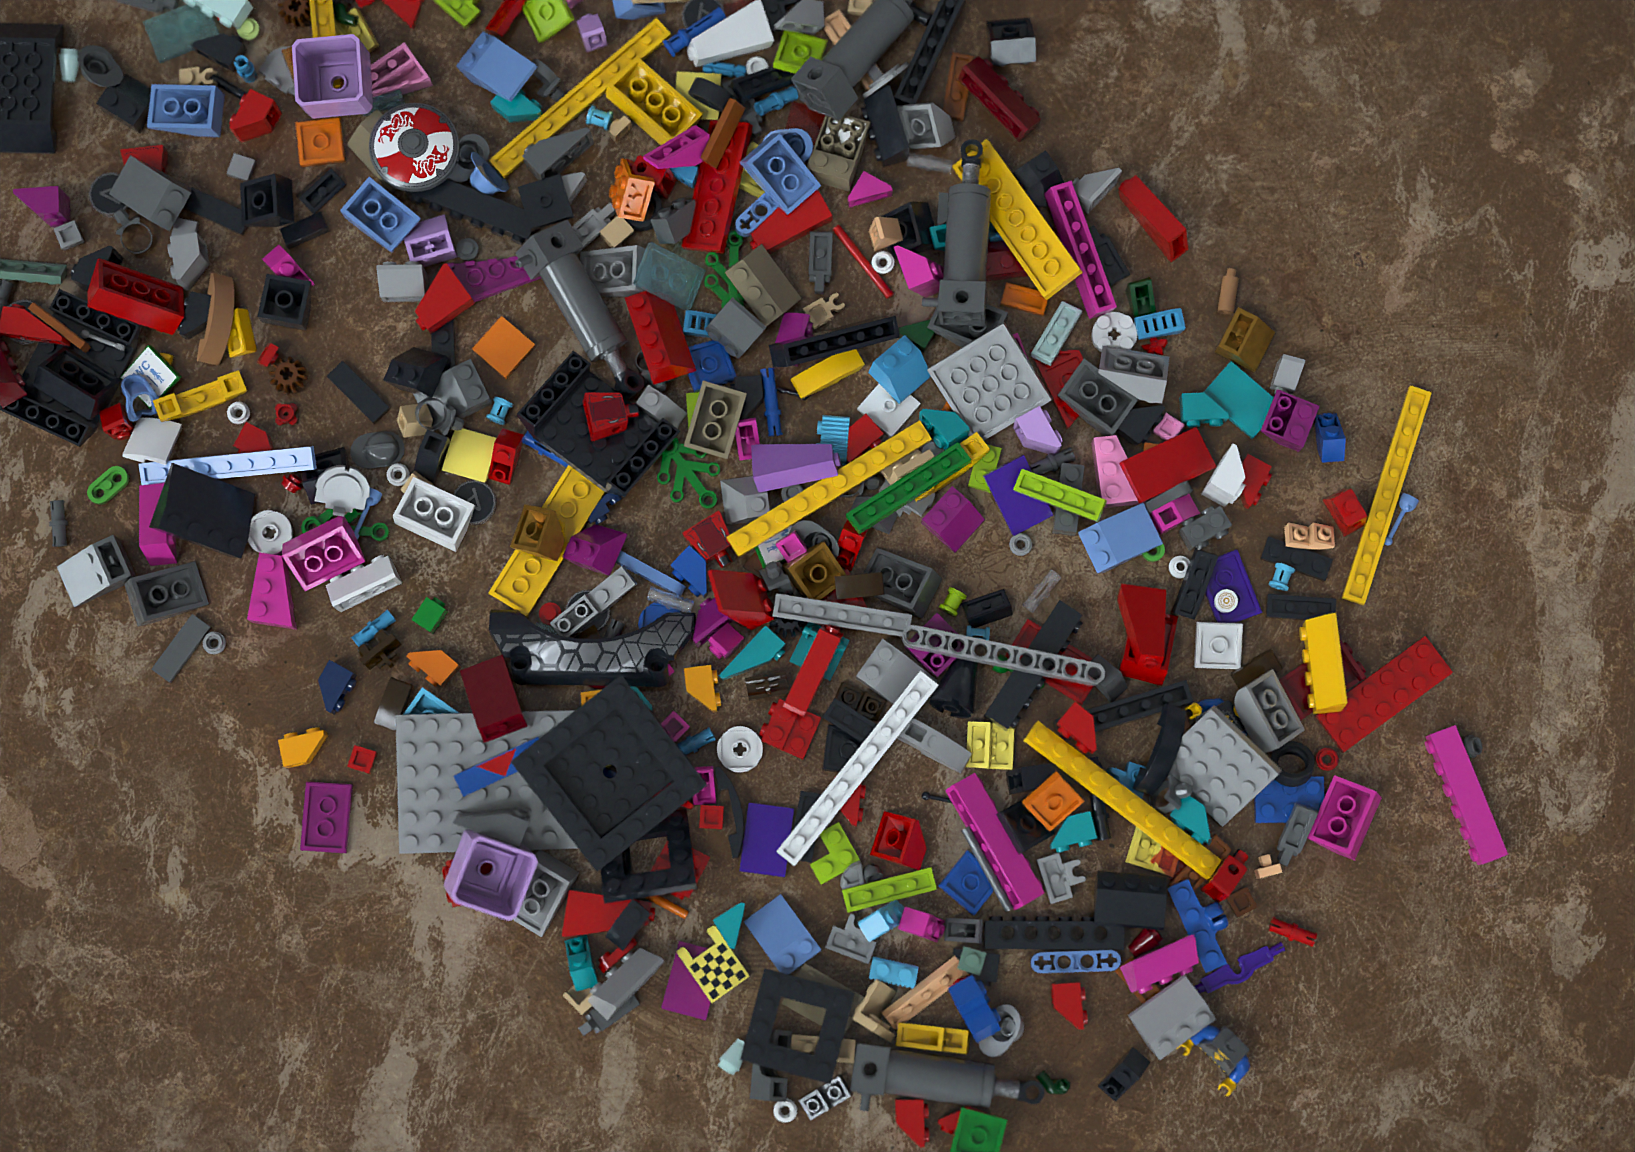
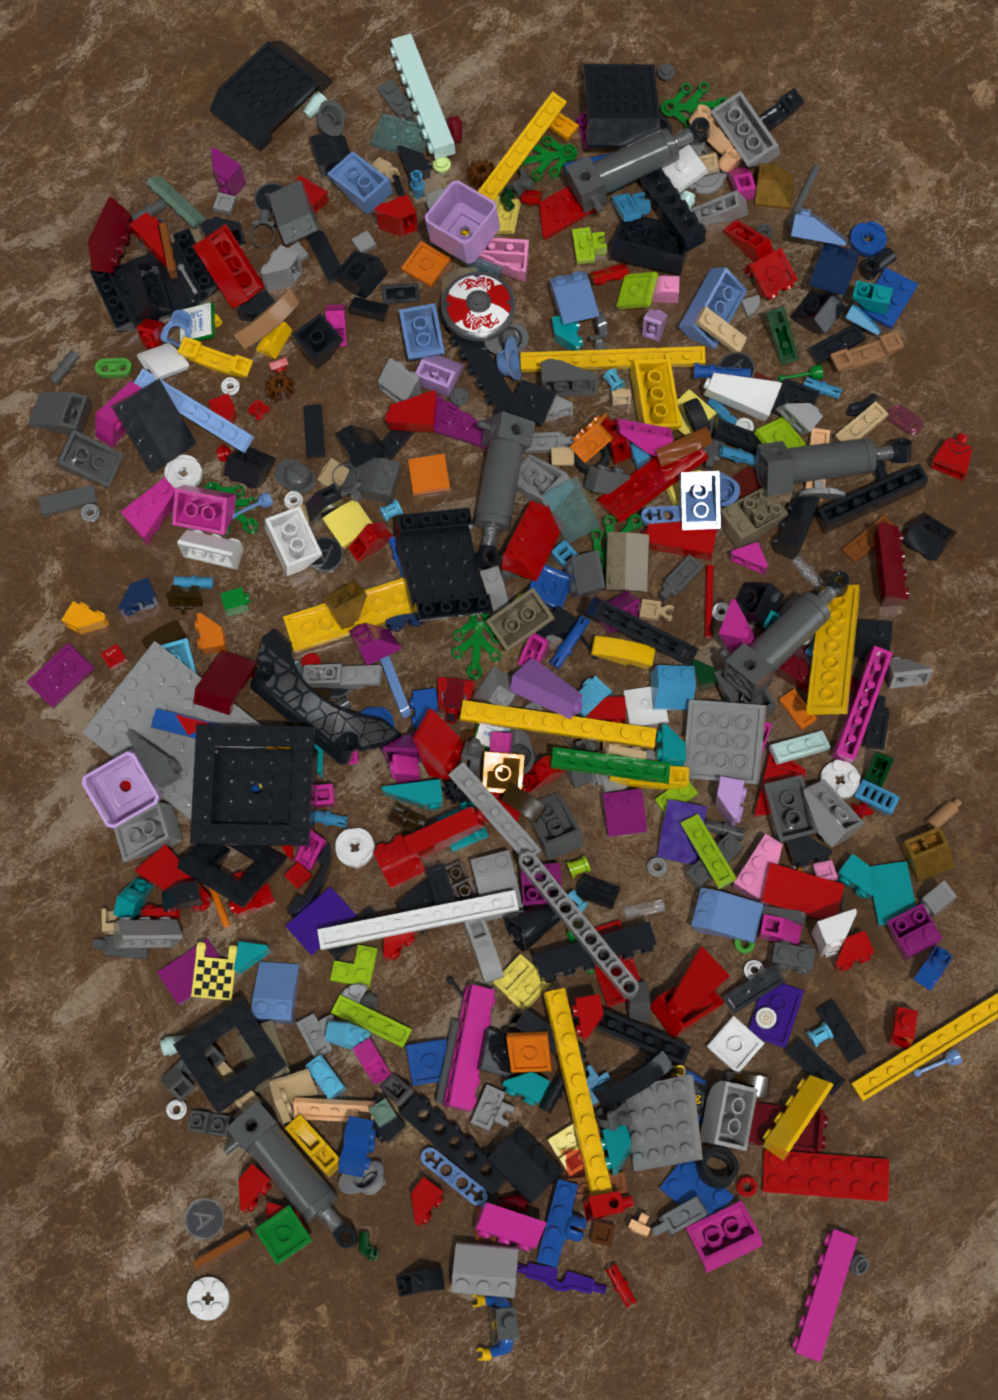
camera: 45 degrees right, 10 degrees down
(342, 489) = (249, 479): piece -> none
(607, 414) = (455, 563): torso -> none
(670, 600) = (393, 713): clear pin -> none
(700, 685) = (366, 785): light orange slope -> none
(884, 232) = (739, 590): light nougat slope -> none
(899, 841) = (406, 995): red slope -> none
(925, 125) = (823, 544): light grey slope -> none
(1154, 218) = (932, 725): red slope -> none
(1312, 537) = (863, 1025): light nougat slope -> none

